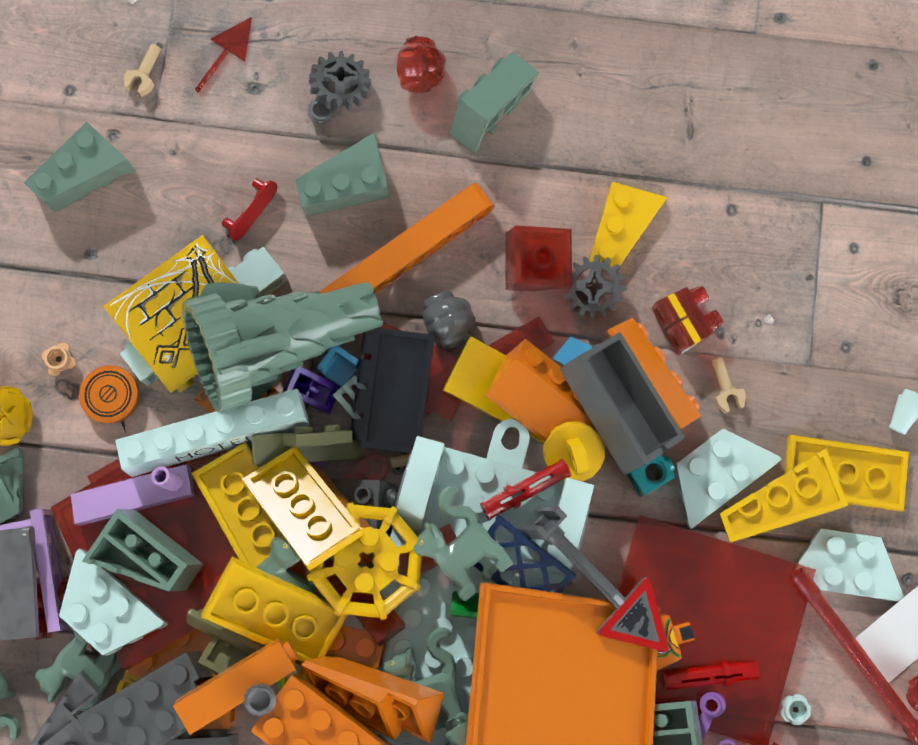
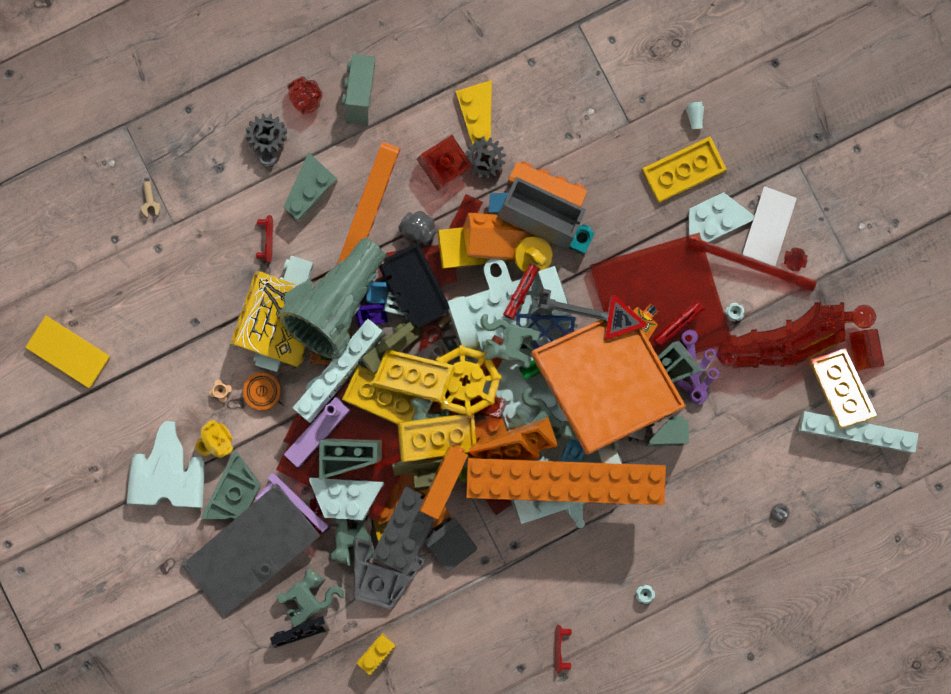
camera: 35 degrees left, 5 degrees up
(78, 168) = (156, 280): sand green wedge -> none
(233, 41) = (187, 149): clear red piece -> none
(259, 699) = (461, 478): flat silver piece -> none
(680, 306) = (553, 145): clear red hips -> none
(719, 472) = (616, 214): light aqua wing -> none
(726, 388) = (592, 165): tan bar -> none
(794, 497) = (662, 204): yellow wing -> none

